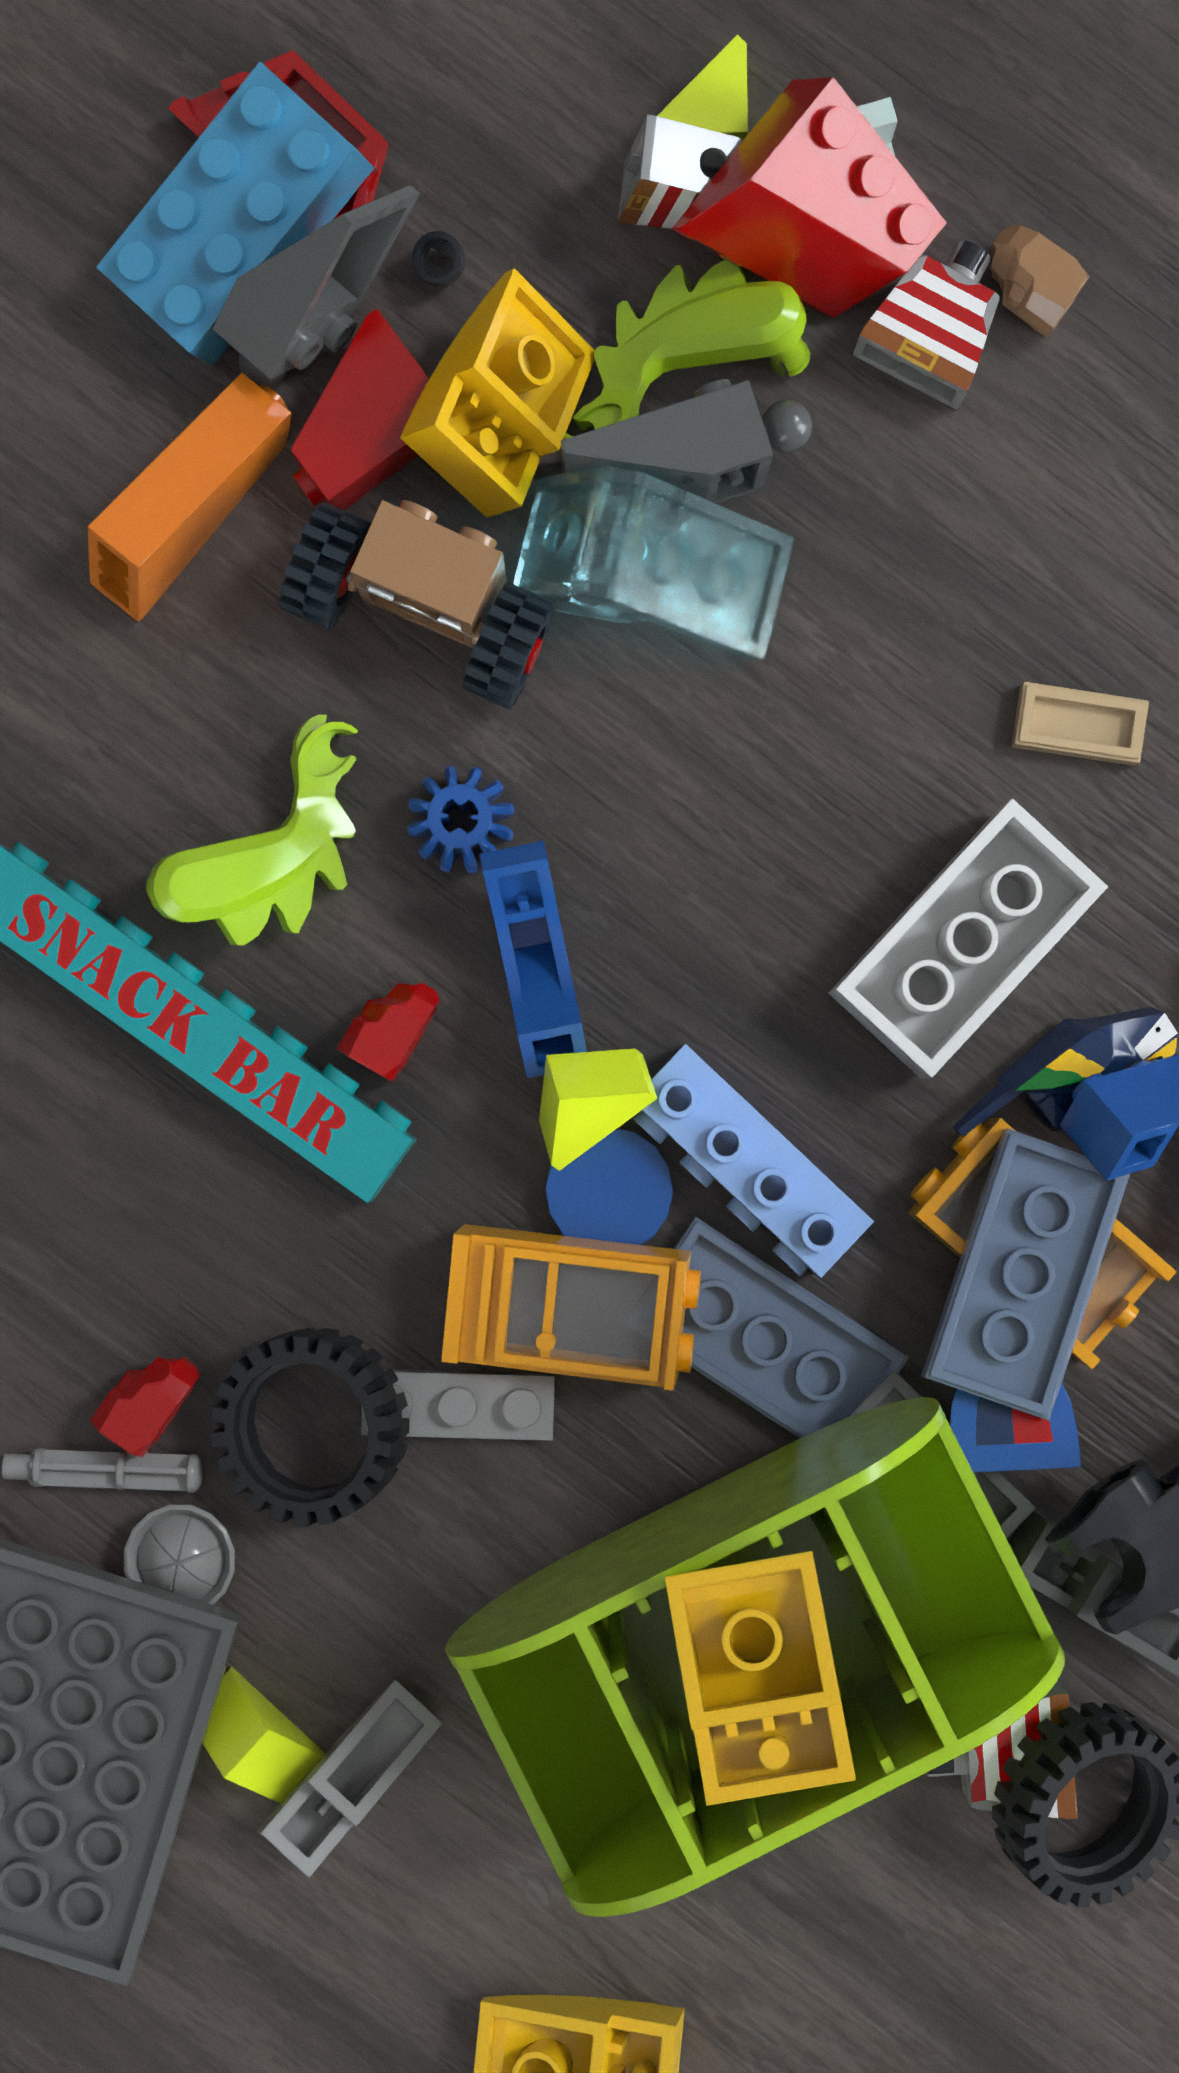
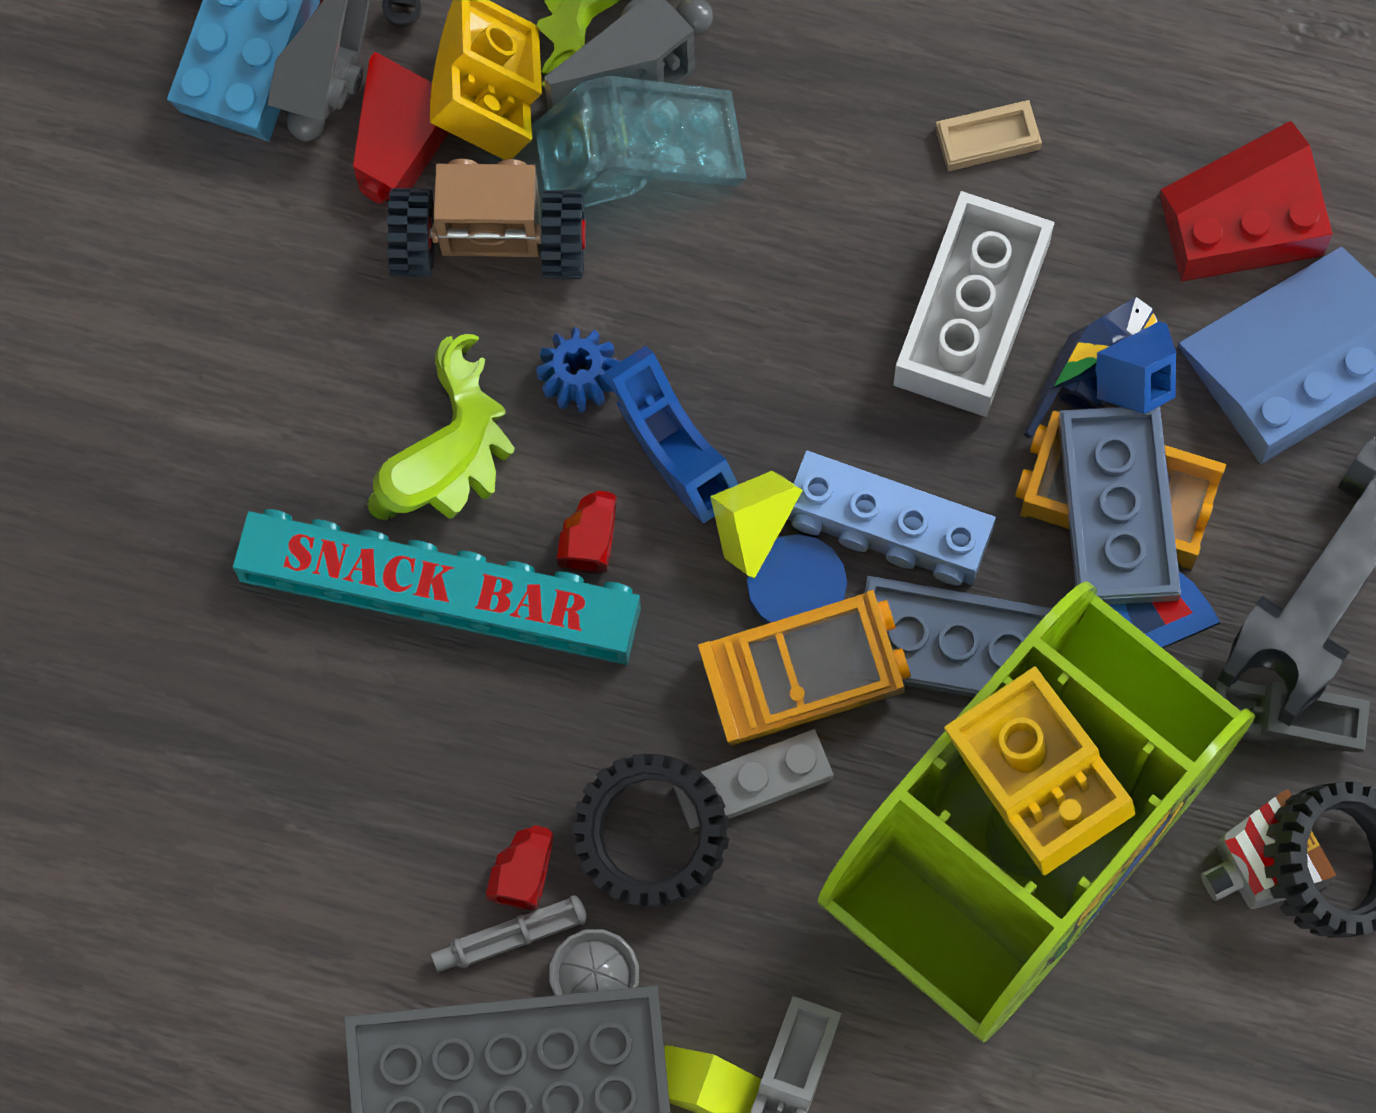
camera: 15 degrees left, 15 degrees down
(185, 495) = (288, 231): orange slope -> none

